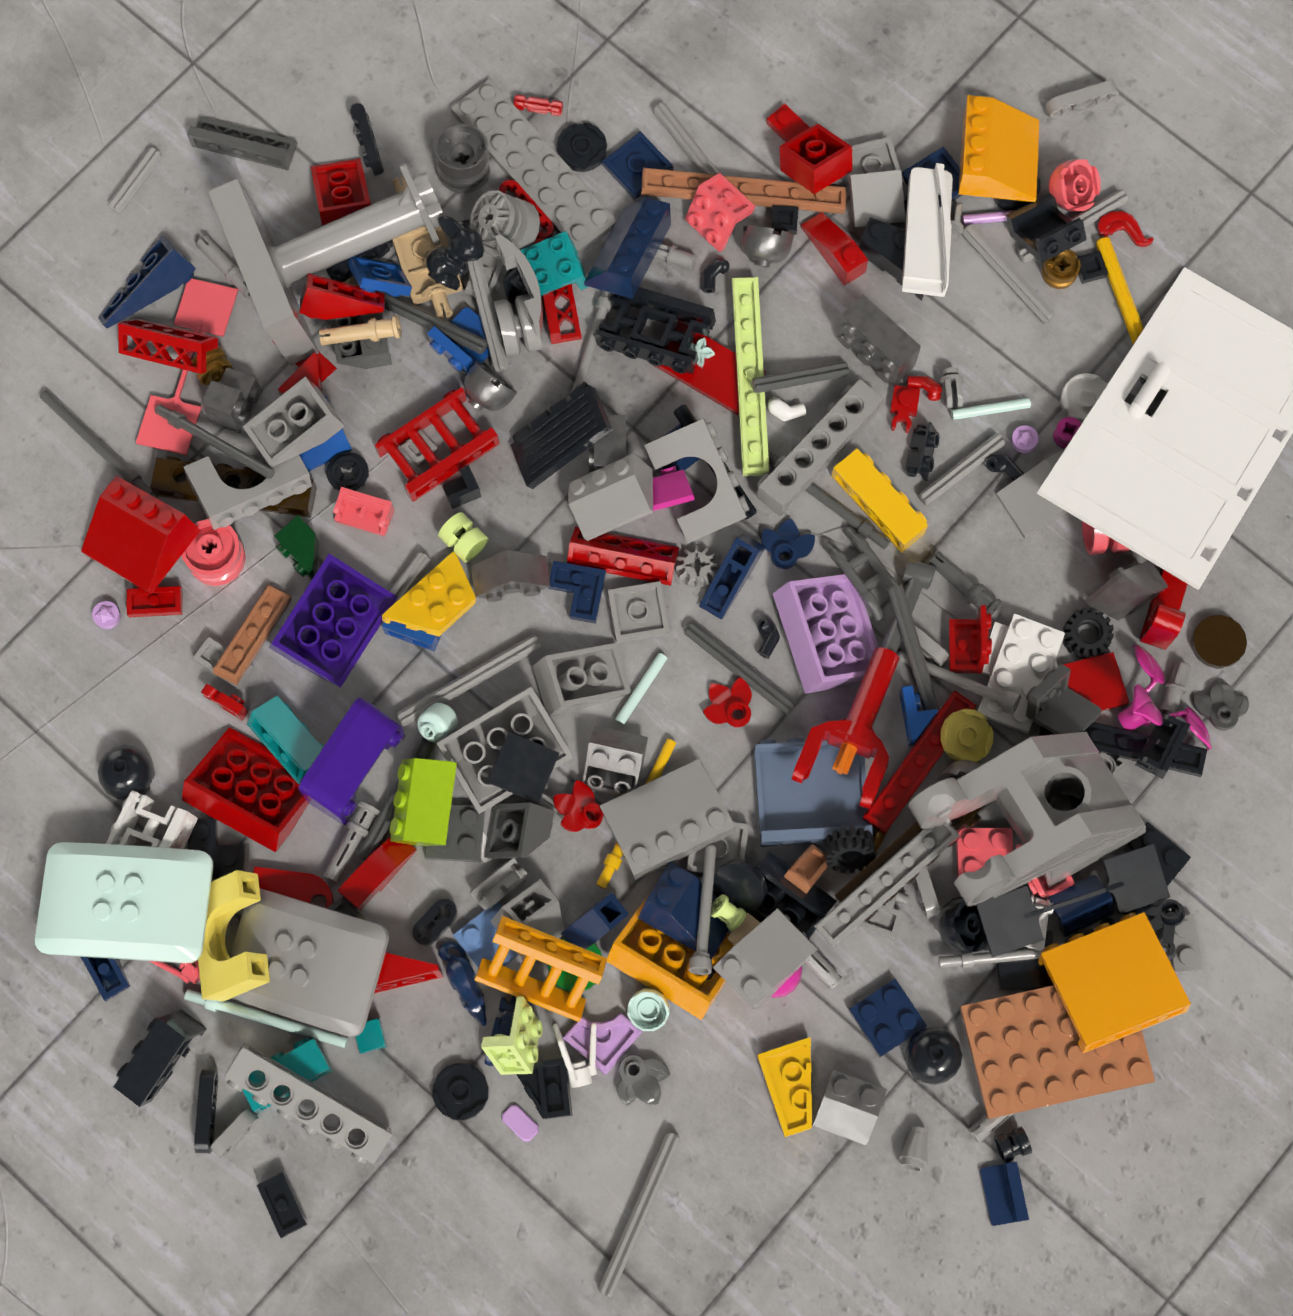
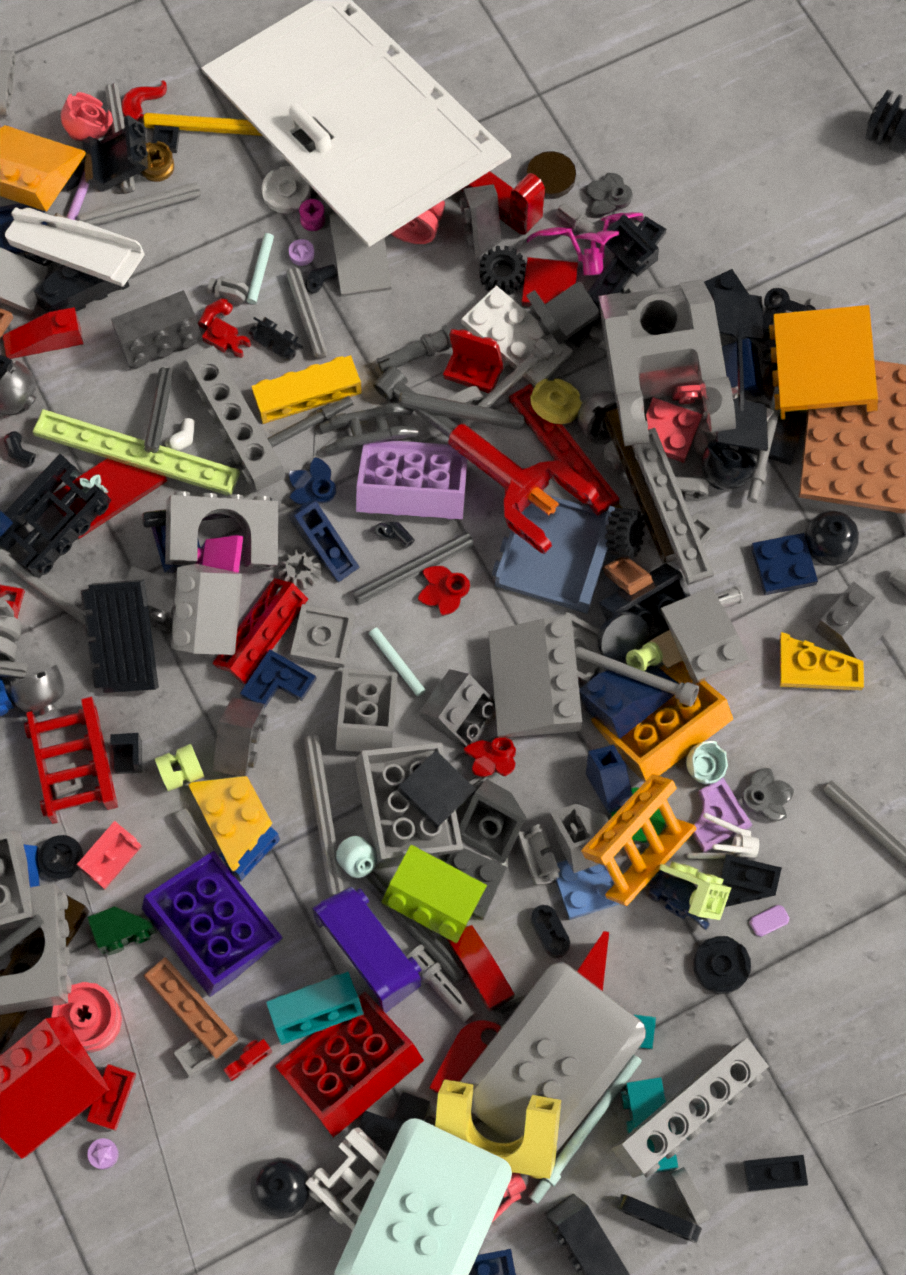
camera: 70 degrees left, 5 degrees down
(462, 979) = (619, 922): dark blue animal -> none
(613, 861) = (552, 745): yellow bar -> none
(914, 721) = (524, 439): blue slope -> none

